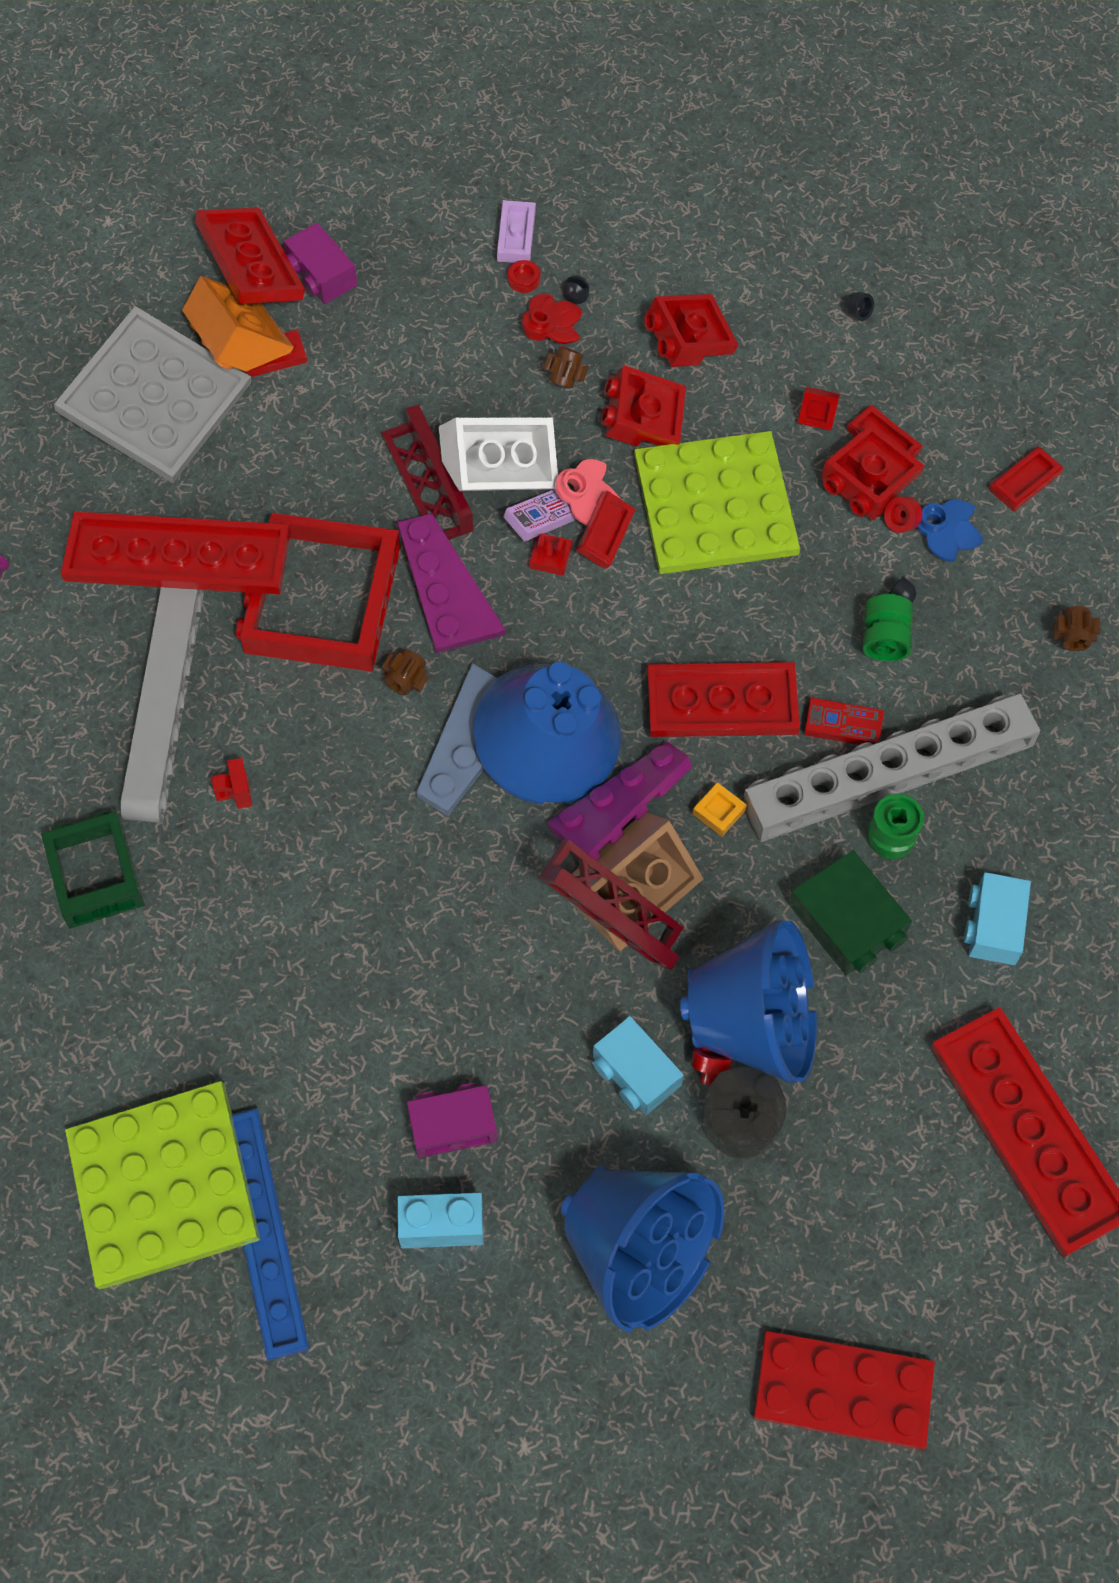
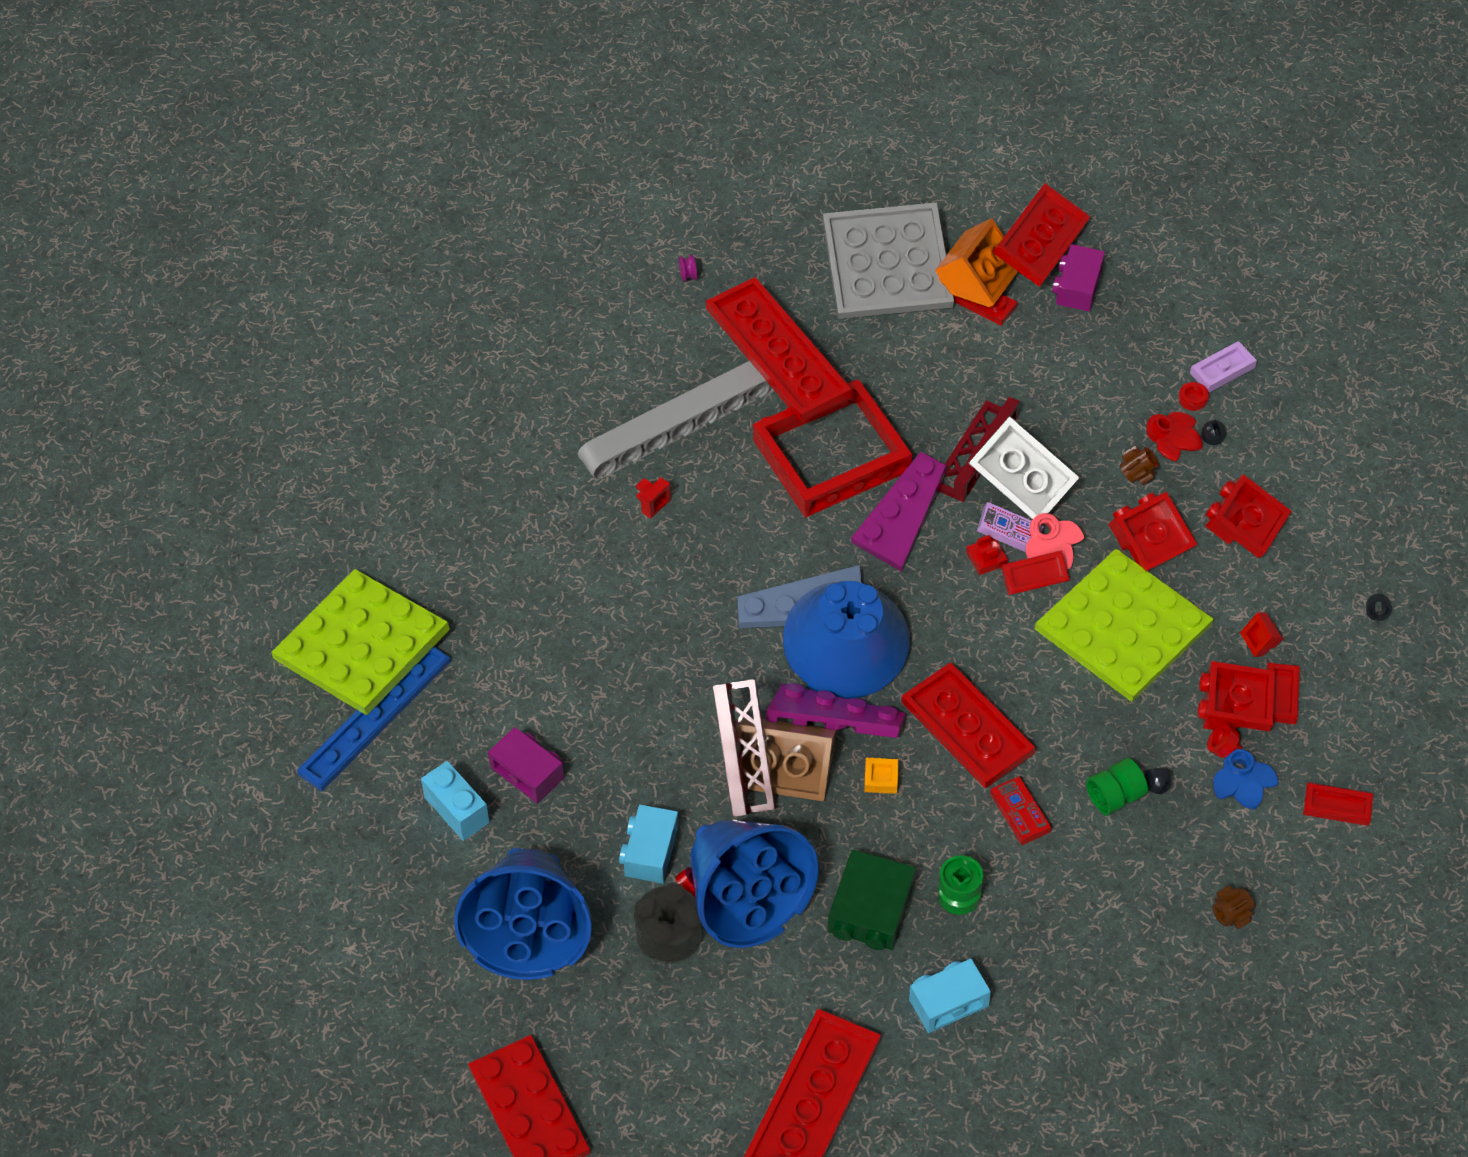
camera: 55 degrees right, 10 degrees down
(102, 902) = (517, 486): dark green window -> none
(405, 672) = (815, 531): reddish brown gear -> none
(1009, 716) = (1016, 872): light grey brick -> none

